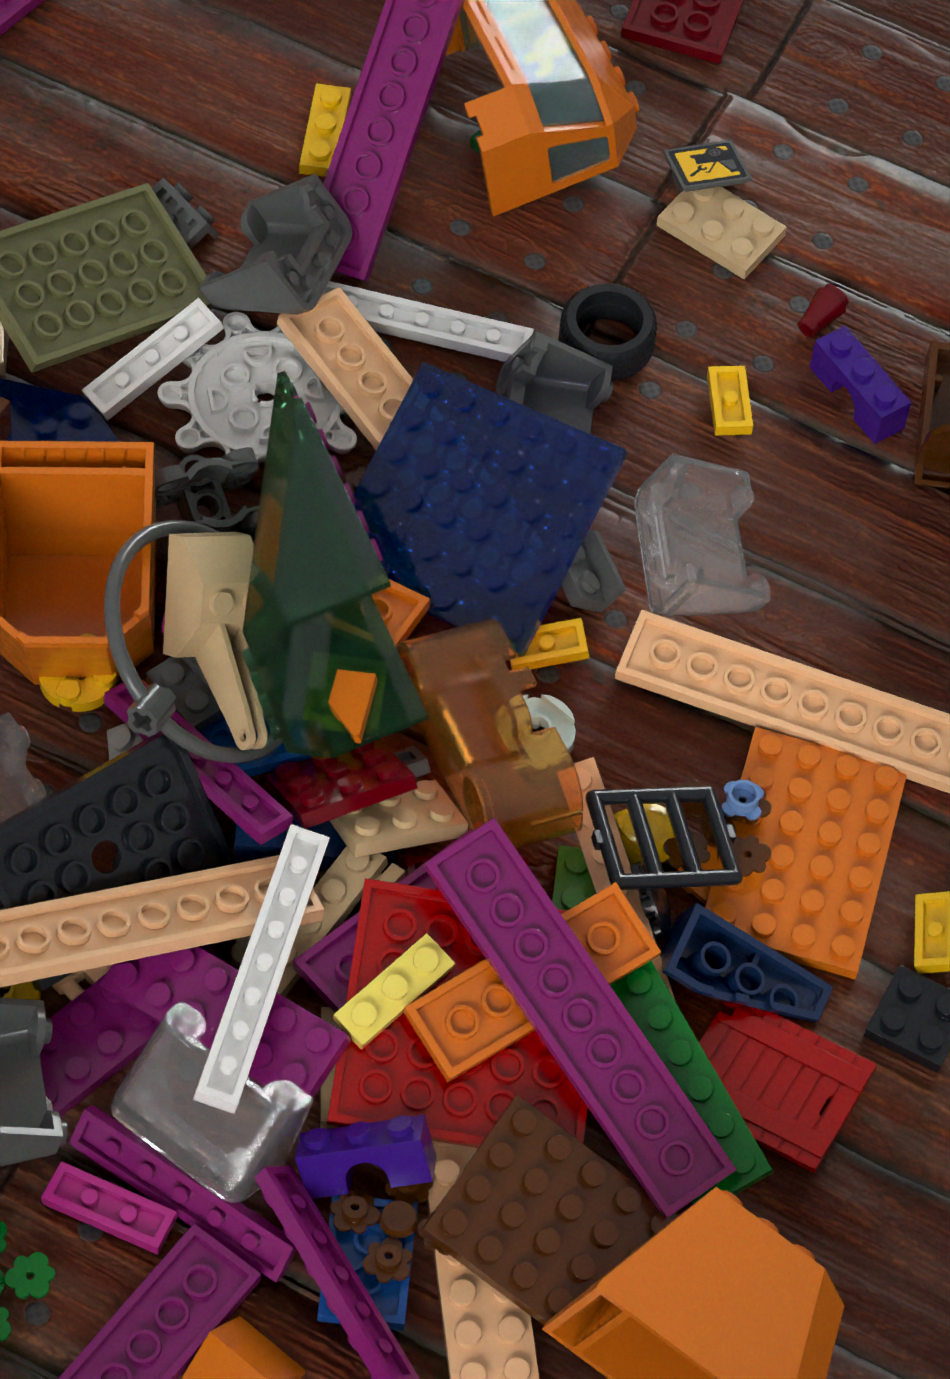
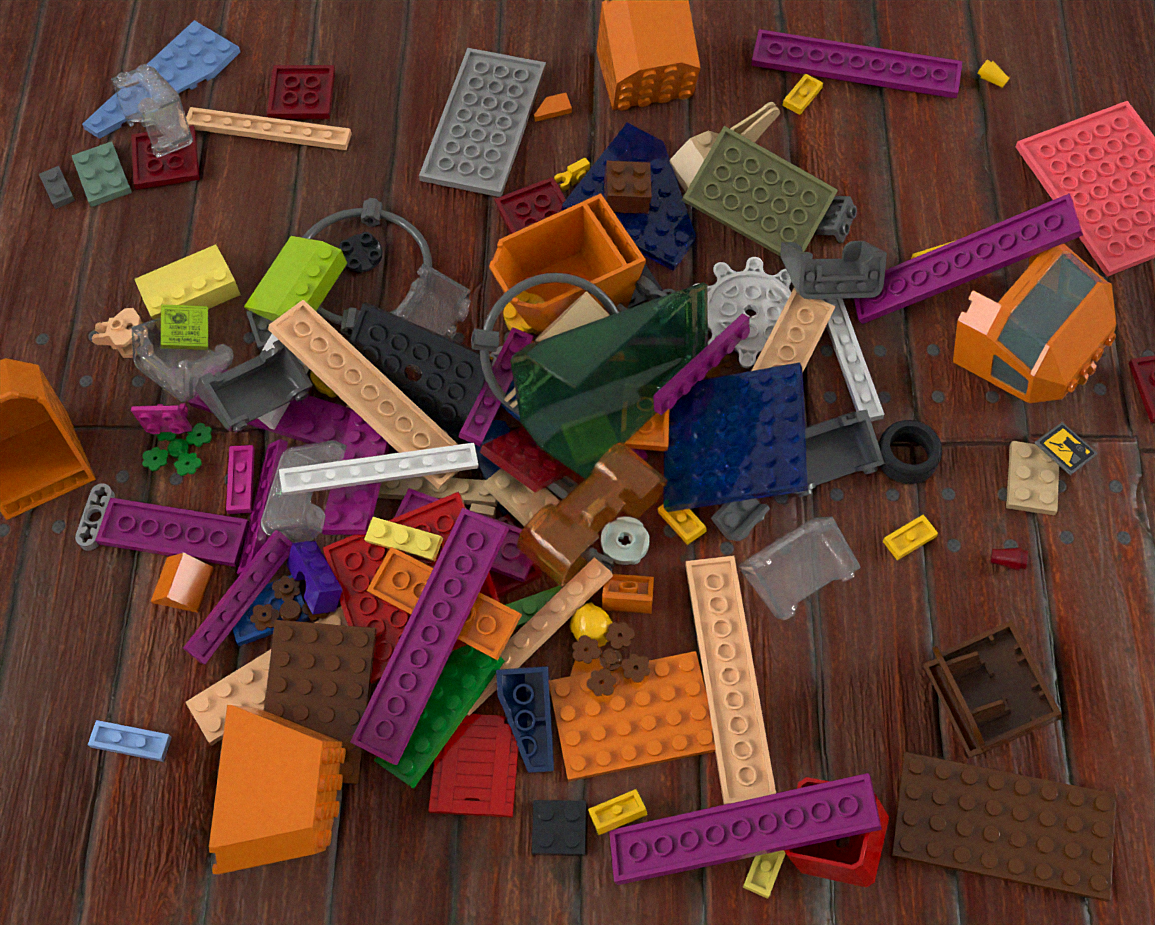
camera: 70 degrees right, 5 degrees up
(152, 359) = (734, 250): white plate -> none
(352, 700) = (572, 438): orange tile -> none
(628, 756) = (628, 593): none -> orange slope
(655, 904) = (546, 645): black dish -> none
(672, 798) = (561, 656): black bar -> none
(742, 790) = (632, 655): medium blue plate -> none
(878, 401) = (969, 601): dark purple arch -> none

